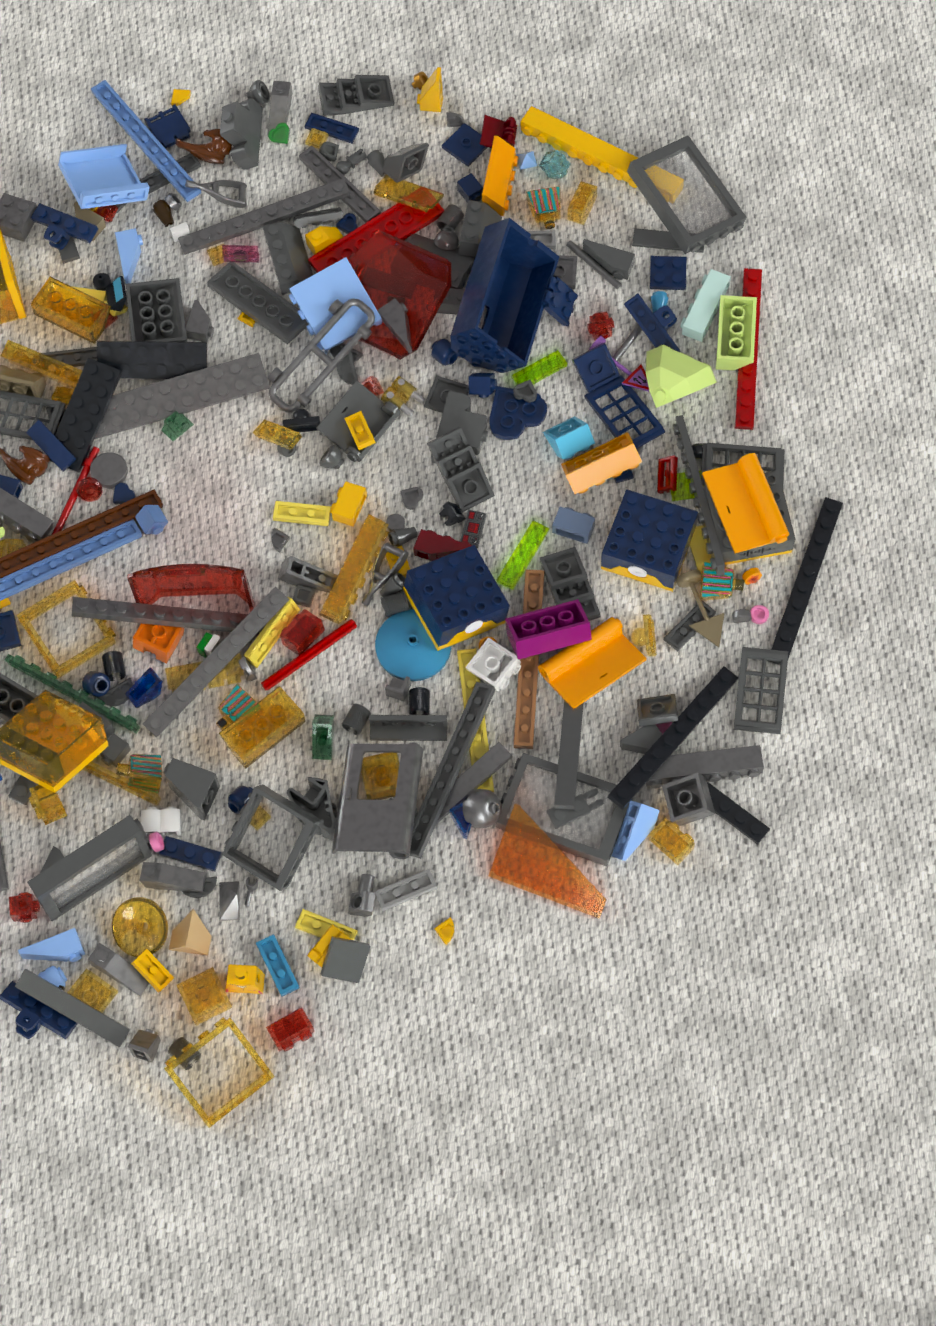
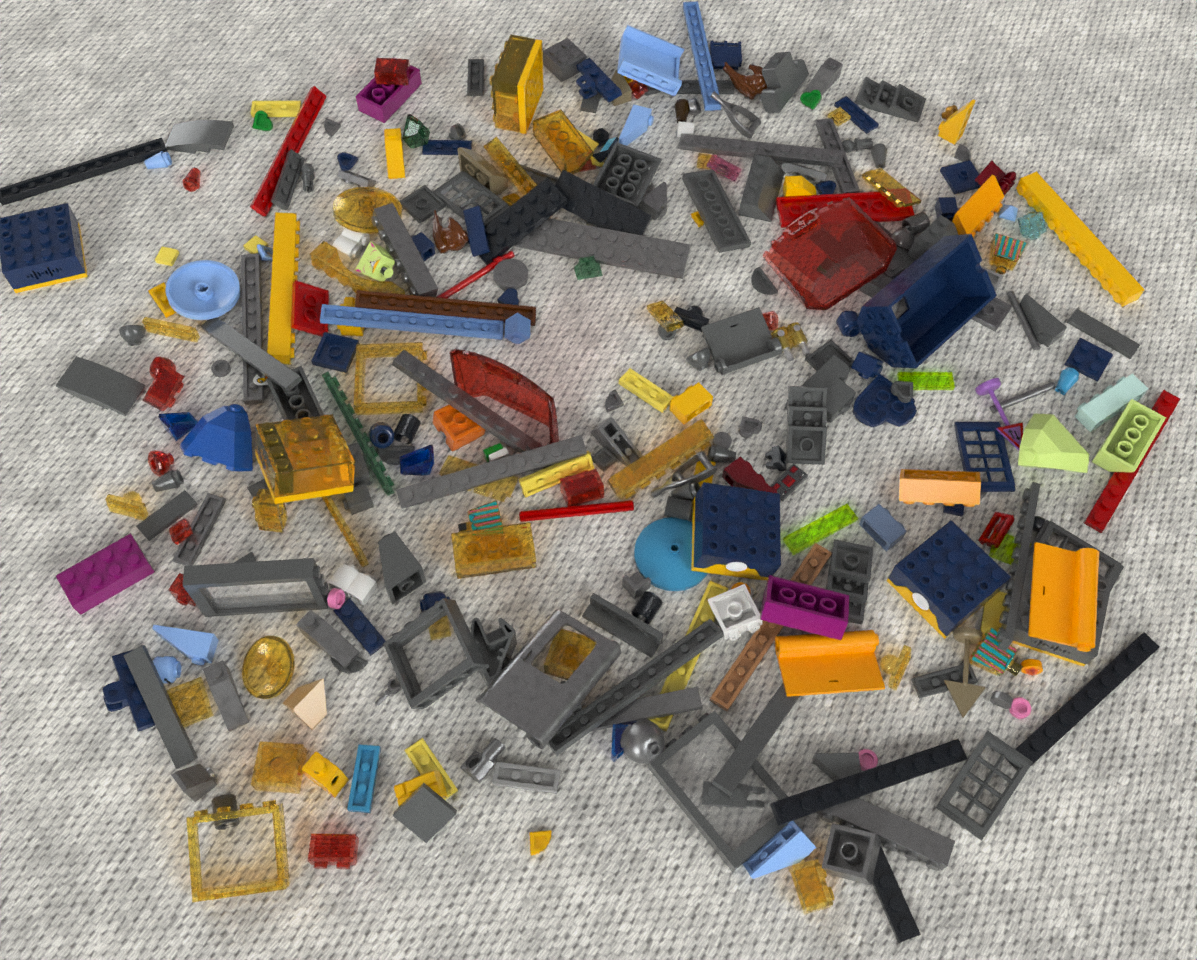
camera: 25 degrees right, 5 degrees down
(89, 489) = (484, 280): clear red brick -> none
(142, 772) = (365, 530): clear yellow torso -> none
(152, 970) = (252, 714): yellow plate -> none
(180, 96) = (748, 39): yellow tile -> none
(229, 901) = (364, 690): flat silver slope -> none
(248, 669) = (517, 491): flat silver tile -> none
(259, 92) = (813, 62): dark grey brick -> none
(278, 377) = (776, 241): flat silver bar -> none
(320, 291) = (776, 238): light blue panel -> none
(322, 737) = (541, 589): clear green slope -> none
(329, 151) = (844, 128): dark grey tile -> none
(347, 370) = (757, 294): dark grey tile -> none
(356, 718) = (581, 590): dark grey piece -> none
(359, 430) = (737, 347): yellow plate -> none
(397, 321) = (822, 278): flat silver slope -> none
(405, 162) = (903, 163): dark grey slope -> none
(536, 864) = (664, 831): clear orange wing -> none
(559, 300) = (976, 331): dark blue plate -> none
(569, 437) = (922, 450): medium azure slope -> none
(582, 203) = (1040, 266): clear yellow brick -> none
(596, 367) = (979, 402): dark blue plate -> none
(600, 325) = (1003, 369): clear red brick -> none
(653, 324) = (1052, 394): dark blue plate -> none
(657, 710) = (868, 744): dark grey tile -> none
(686, 194) = (1141, 302): window -> none

